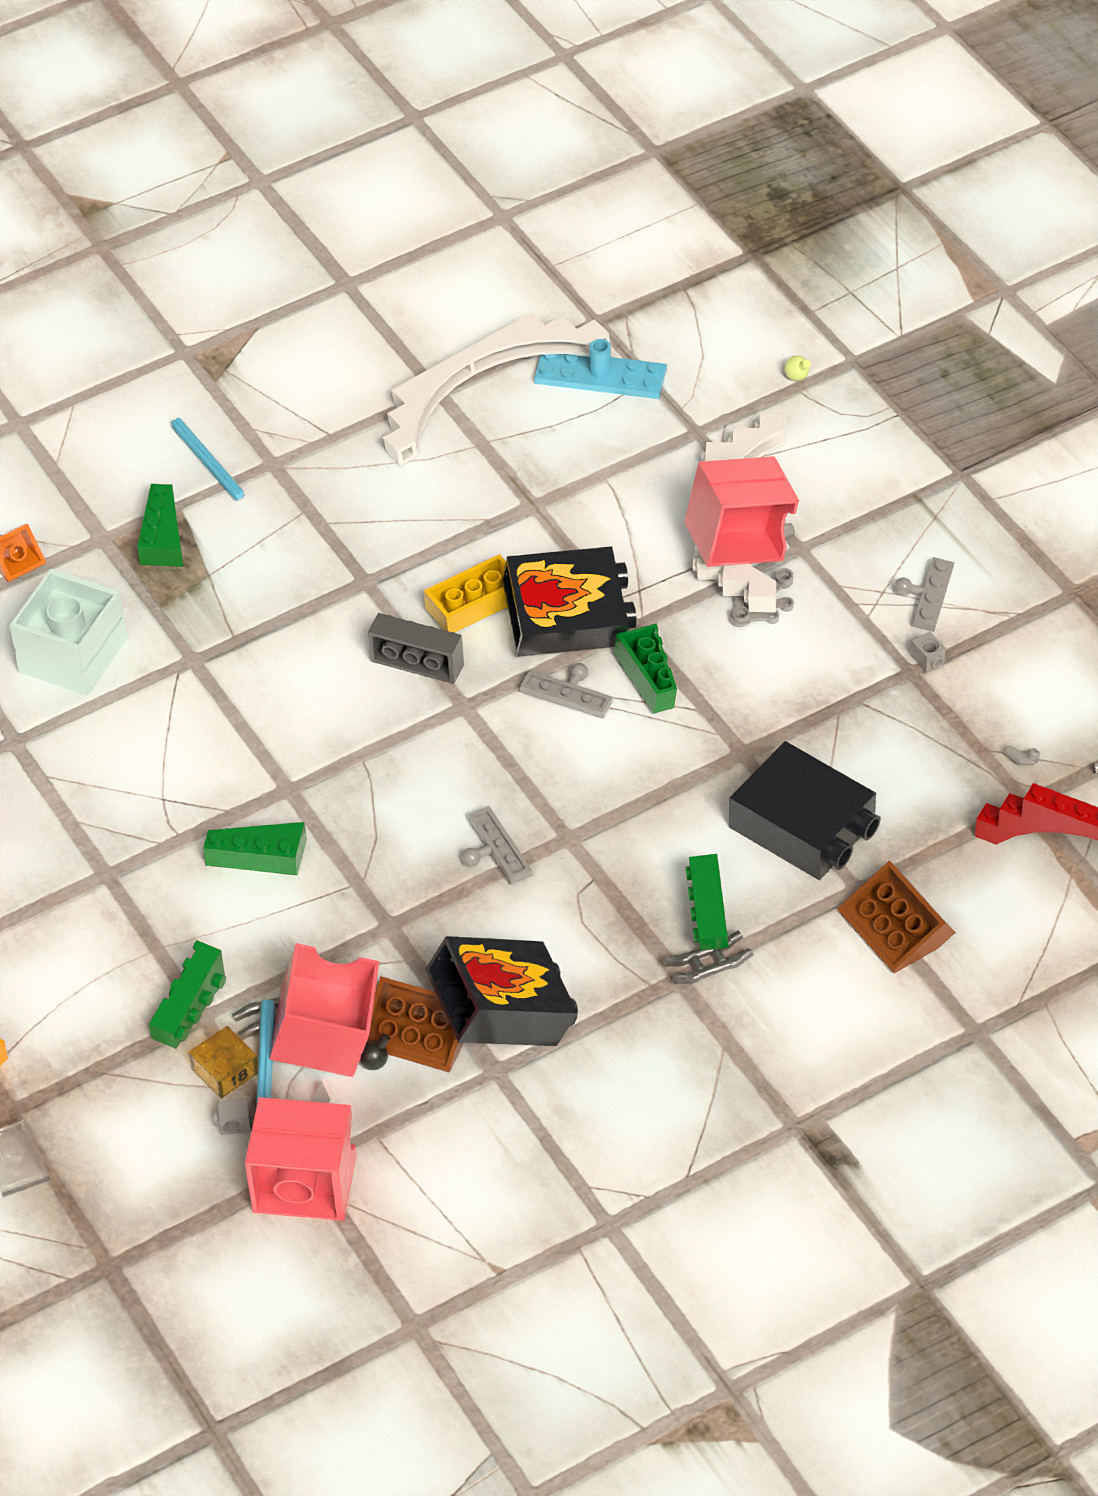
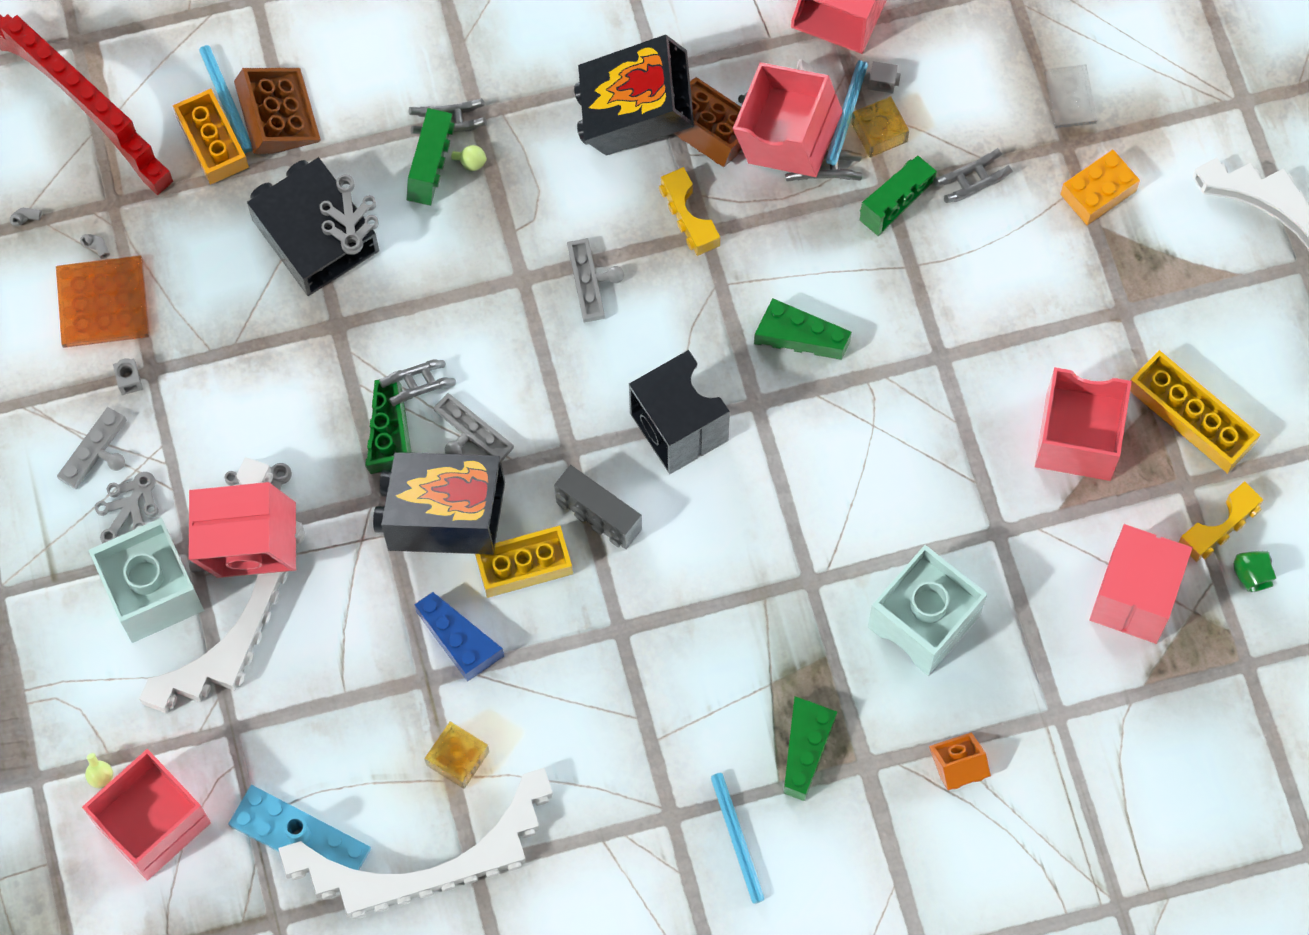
camera: 165 degrees left, 20 degrees up
(111, 1032) = (977, 166): none -> flat silver piece
(358, 723) = (675, 416): none -> black piece
(393, 914) = (700, 233): none -> yellow arch
(480, 446) = (457, 755): none -> clear yellow brick
(514, 528) = (460, 639): none -> blue wedge
(633, 716) = (415, 390): none -> flat silver piece
(665, 924) = (471, 157): none -> yellowish green piece
(734, 333) = (147, 814): none -> coral piece
(749, 777) = (349, 218): none -> light grey plant
(829, 480) = (146, 580): none -> light aqua piece
(869, 577) = (129, 504): none -> light grey plant
(952, 869) = (210, 136): none -> light orange brick
(961, 923) = (225, 98): none -> medium azure axle
(989, 712) = (102, 301): none -> clear orange plate

